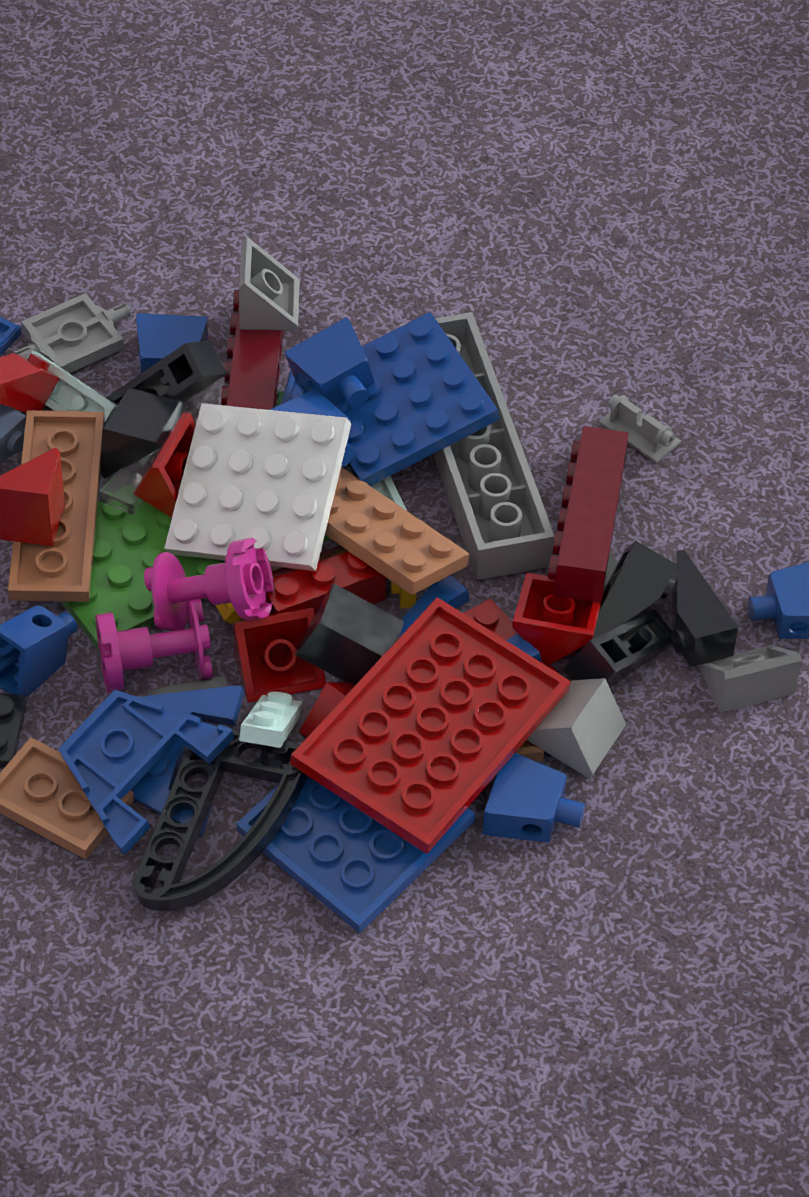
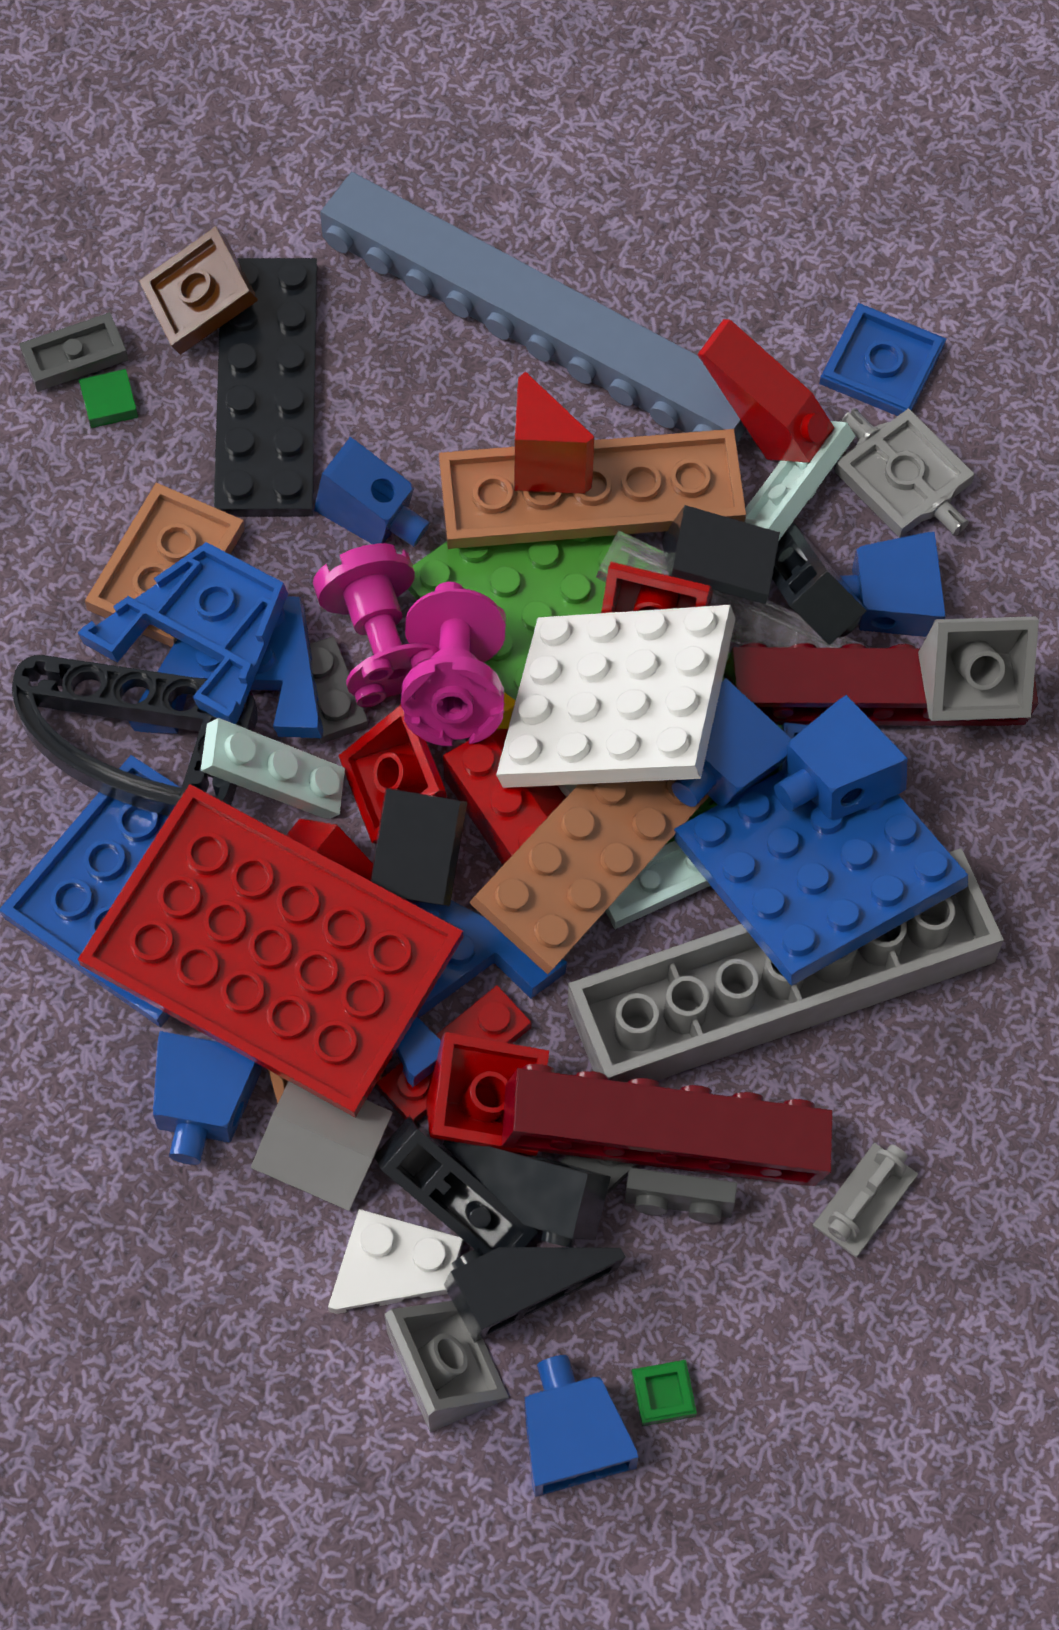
camera: 85 degrees right, 15 degrees up
(636, 513) = (701, 1197): none -> dark grey plate
(669, 701) = (392, 1263): none -> white wing
(771, 555) = (663, 1393): none -> green tile

